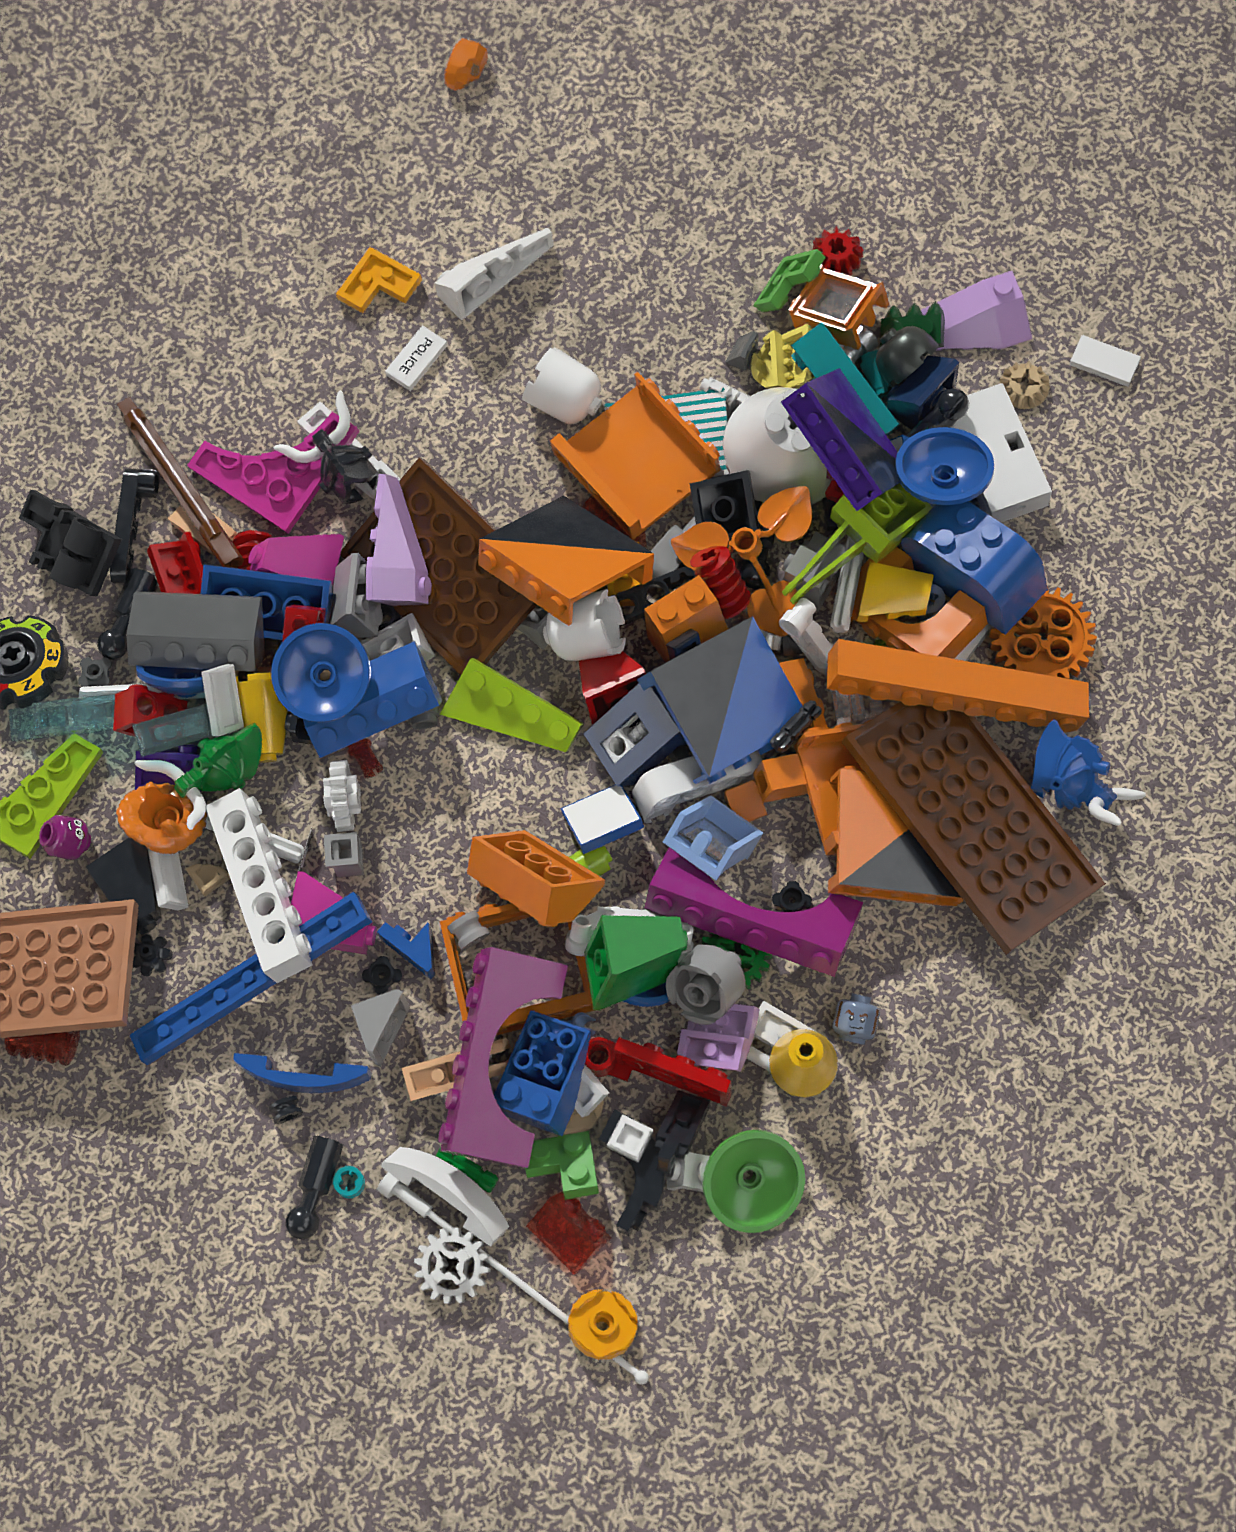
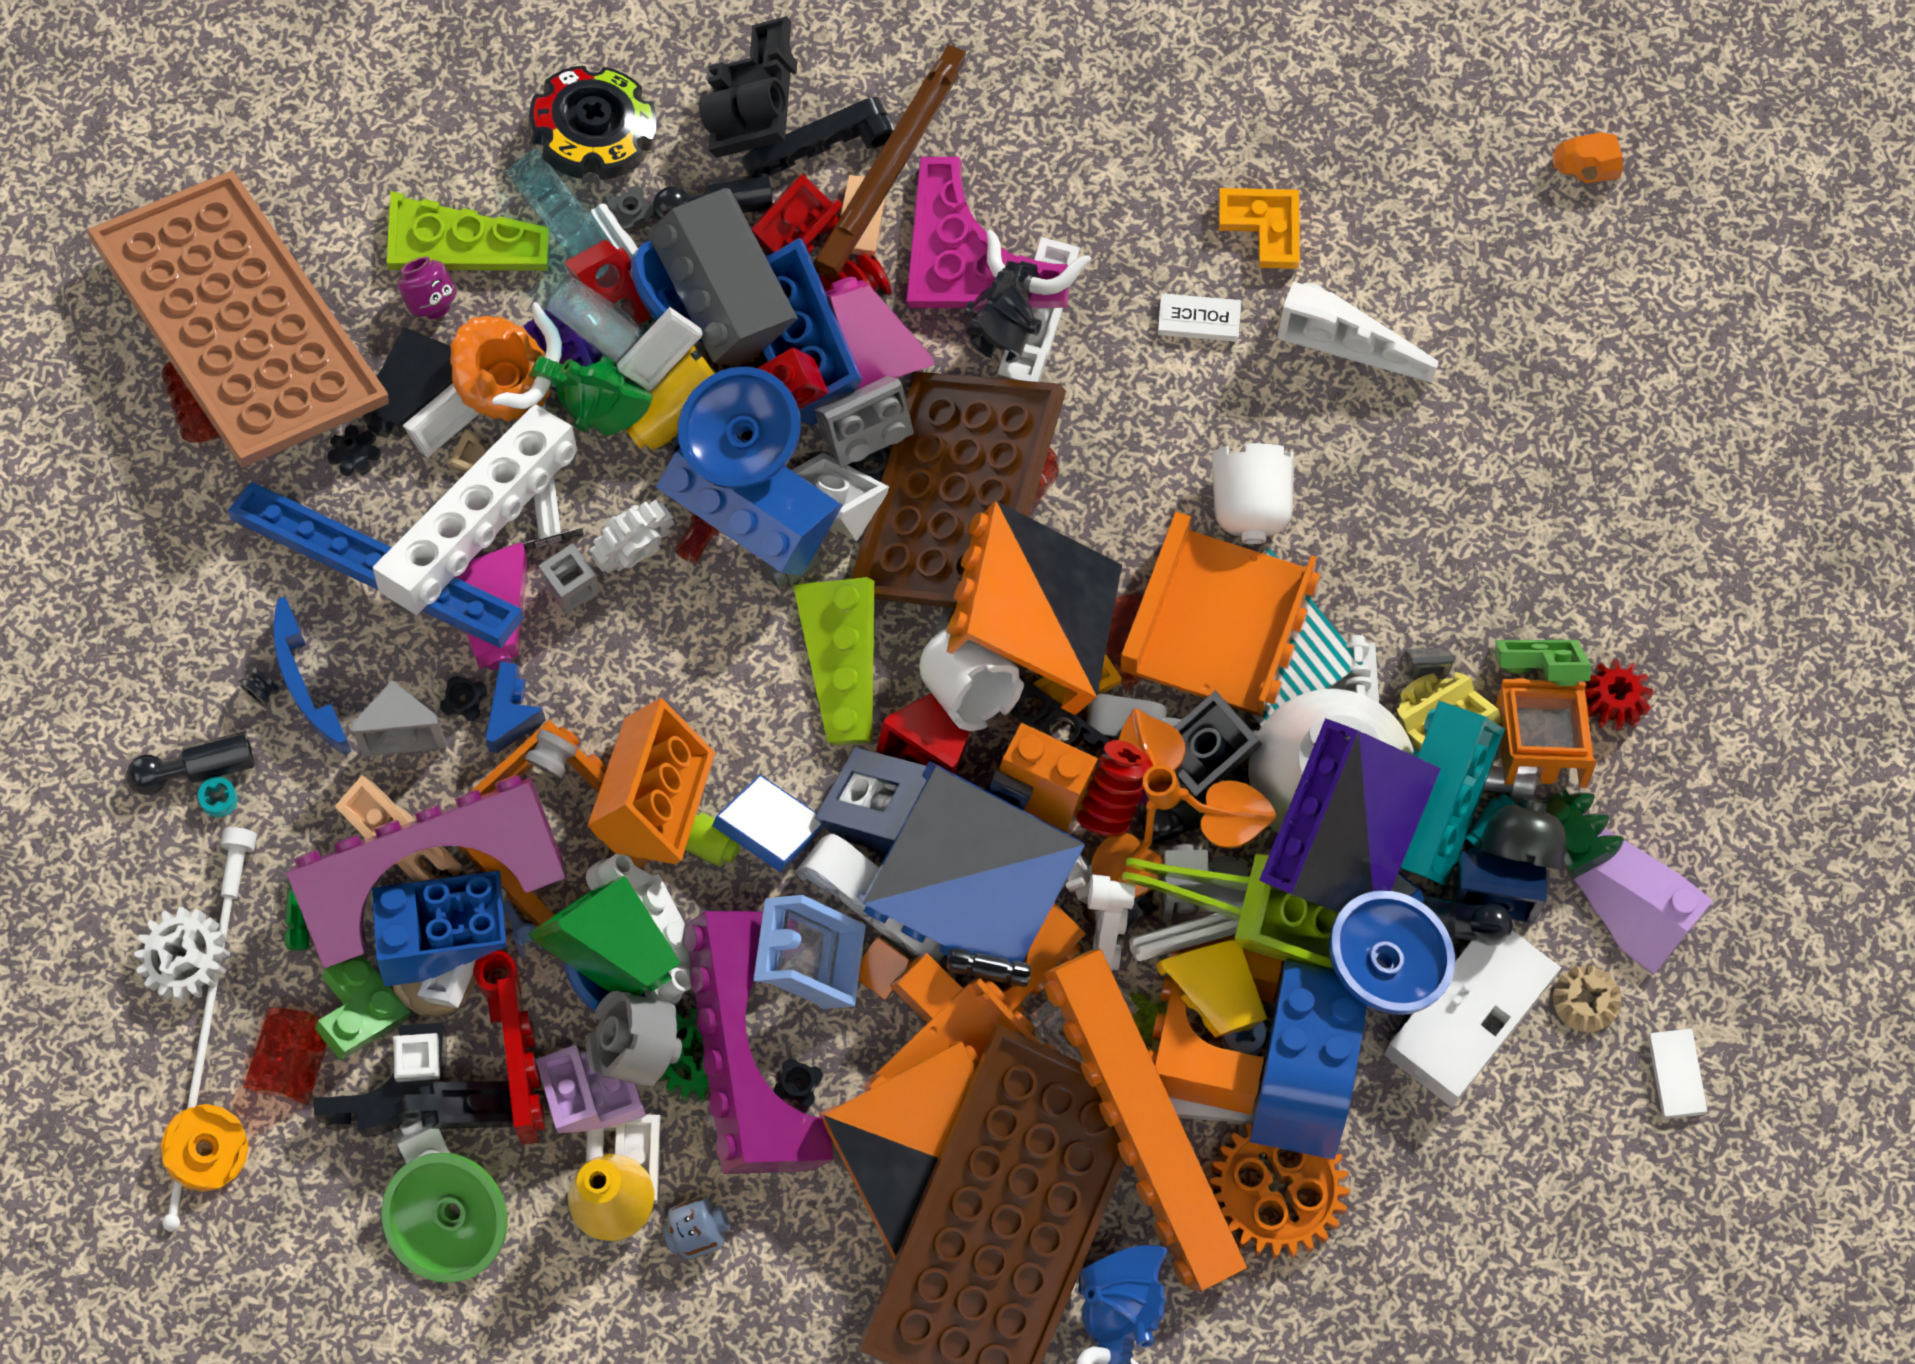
camera: 50 degrees right, 0 degrees up
(397, 569) = (927, 434): lavender wedge -> none
(453, 1186) = (265, 905): white slope -> none

